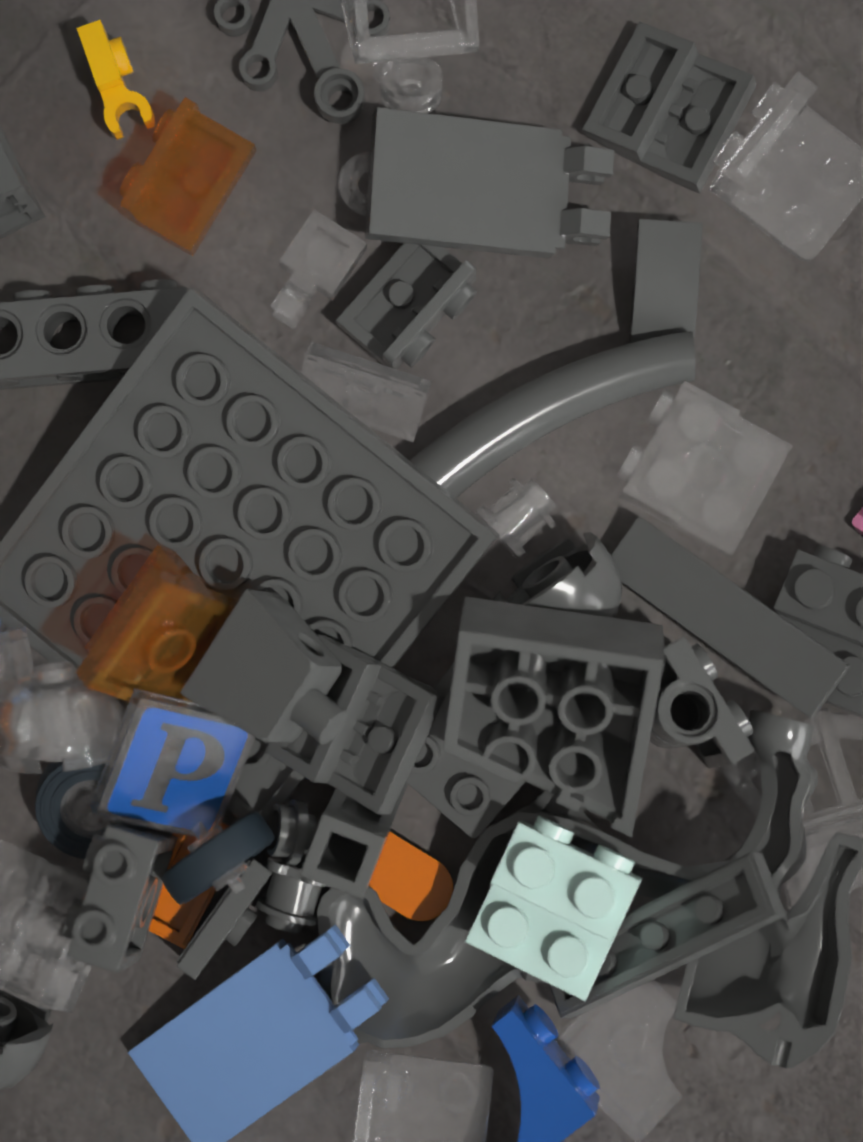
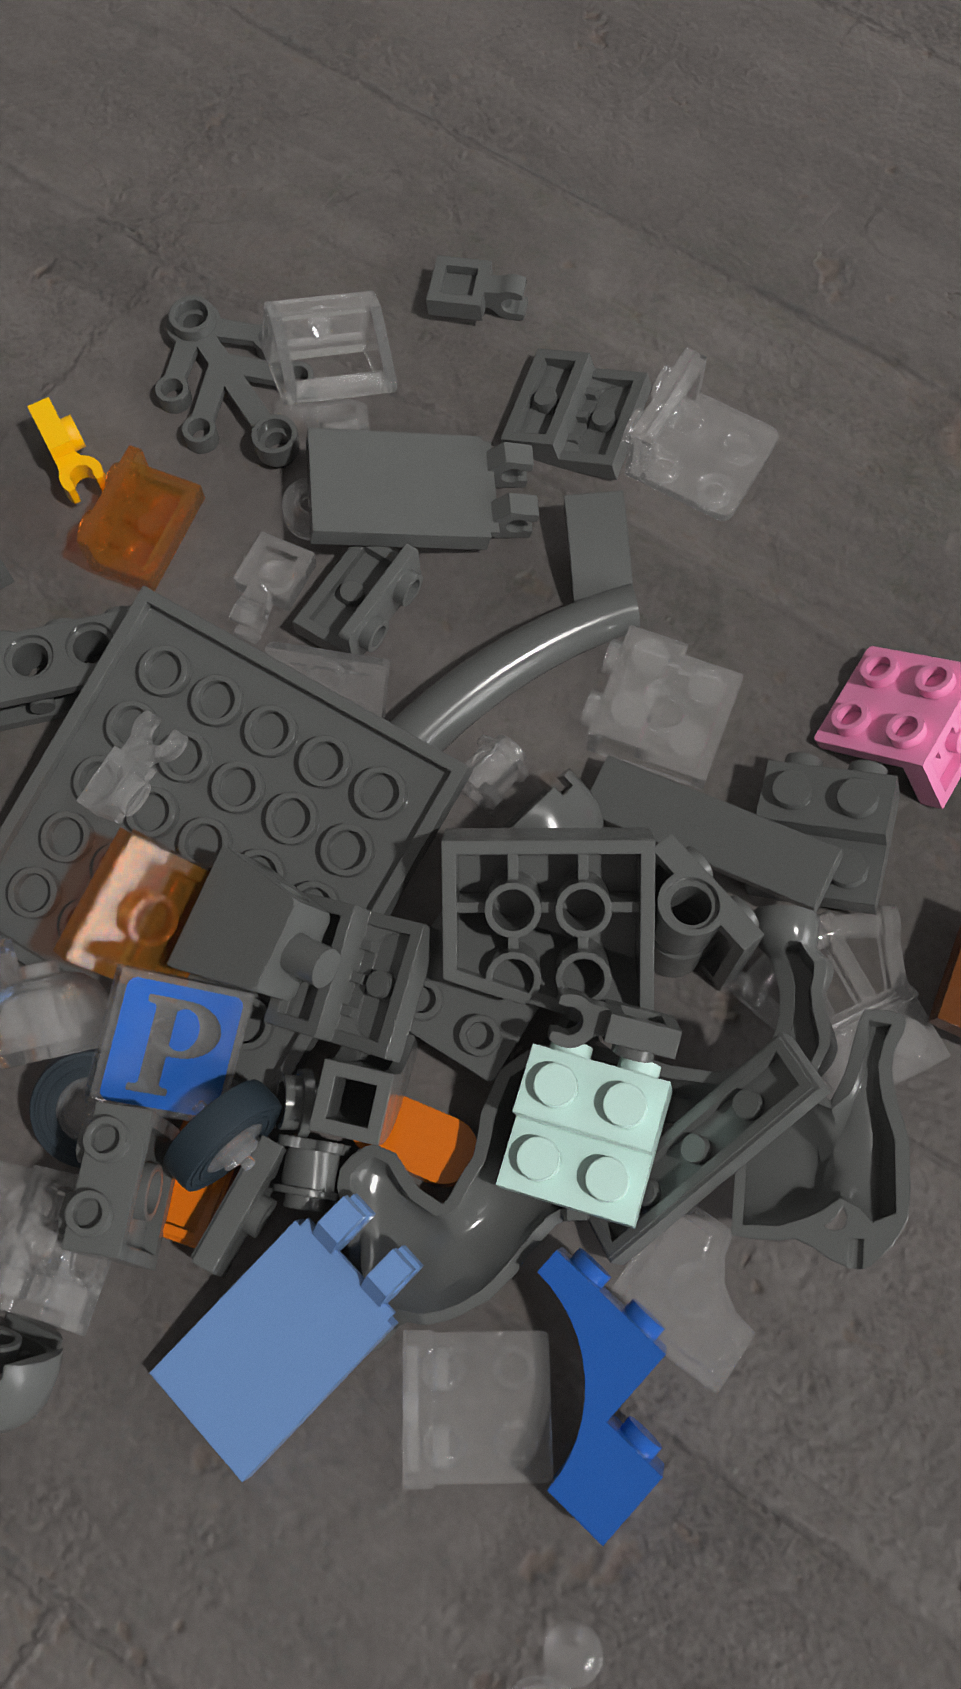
camera: 10 degrees left, 15 degrees down
(151, 500) = (124, 776): none -> clear plate
(608, 824) = (631, 1030): none -> dark grey plate

